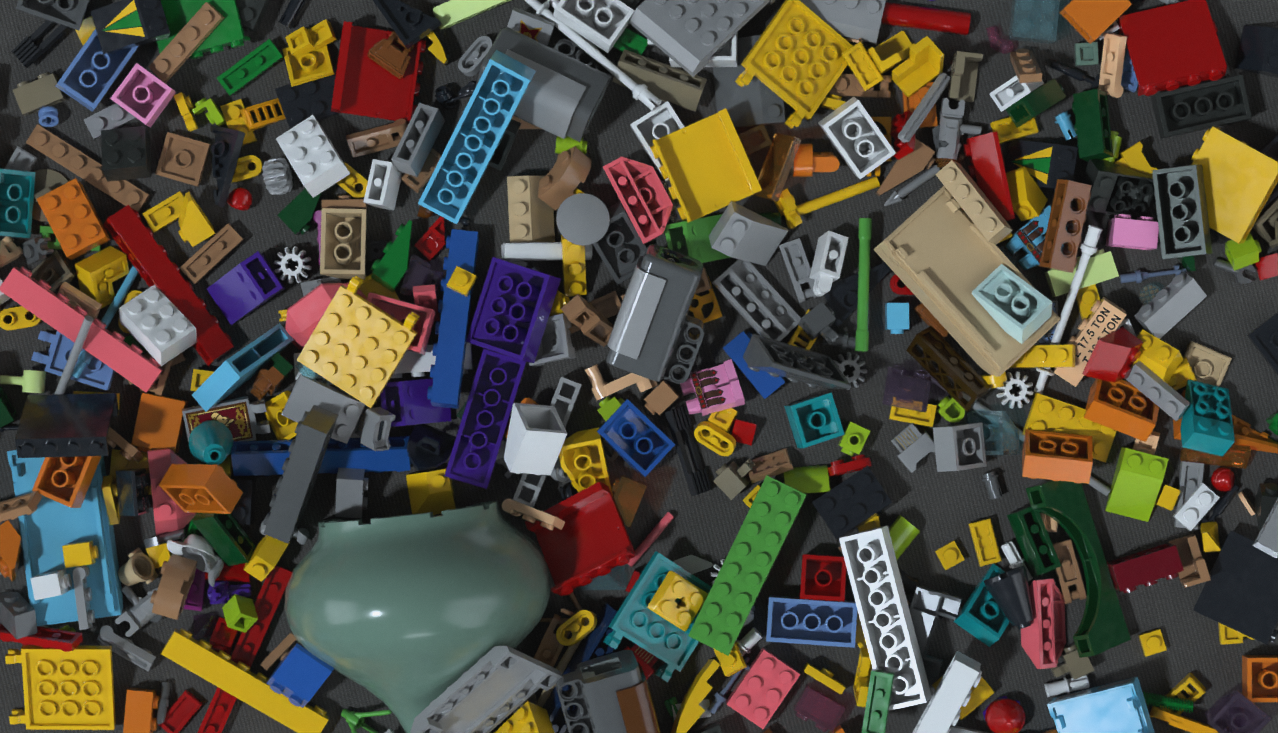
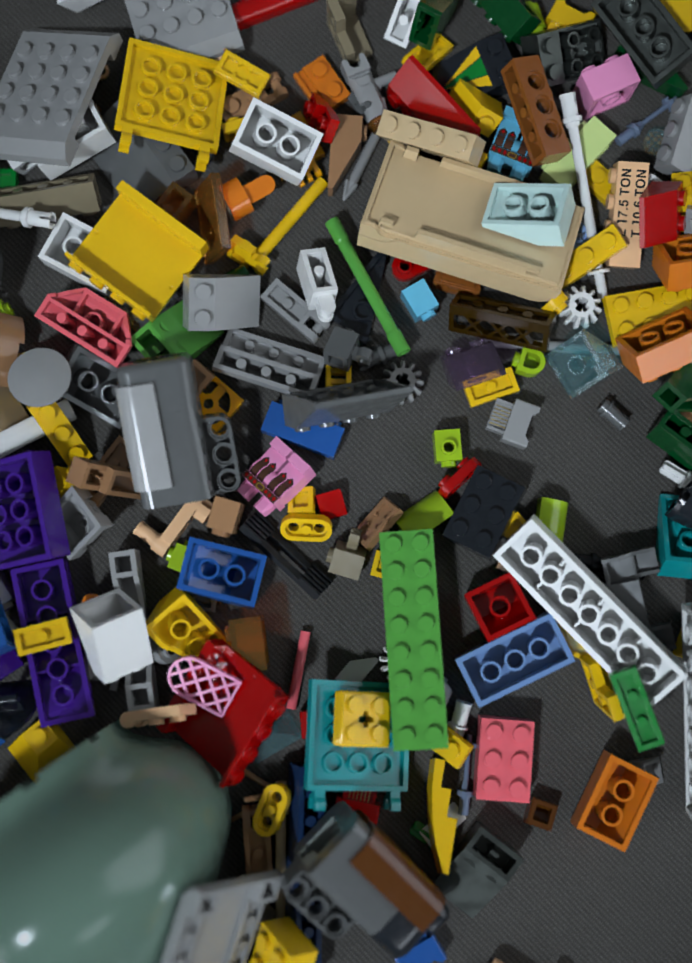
camera: 30 degrees left, 5 degrees down
(482, 411) = (42, 636): none -> yellow plate
(569, 525) = (206, 665): none -> bright pink window
(814, 420) = (396, 450): teal slope -> none
(818, 708) = (573, 746): clear pink brick -> none
(825, 677) = (560, 709): yellow plate -> none
(891, 52) = (266, 47): yellow panel -> none
(920, 68) = (301, 41): yellow panel -> none
(924, 107) = (326, 79): light grey axle -> none
(949, 555) = (612, 510): yellow plate -> none
(959, 447) = (559, 392): light grey brick -> none
(984, 542) = (640, 477): yellow plate -> none
(1065, 123) = (476, 24): medium azure pin -> none

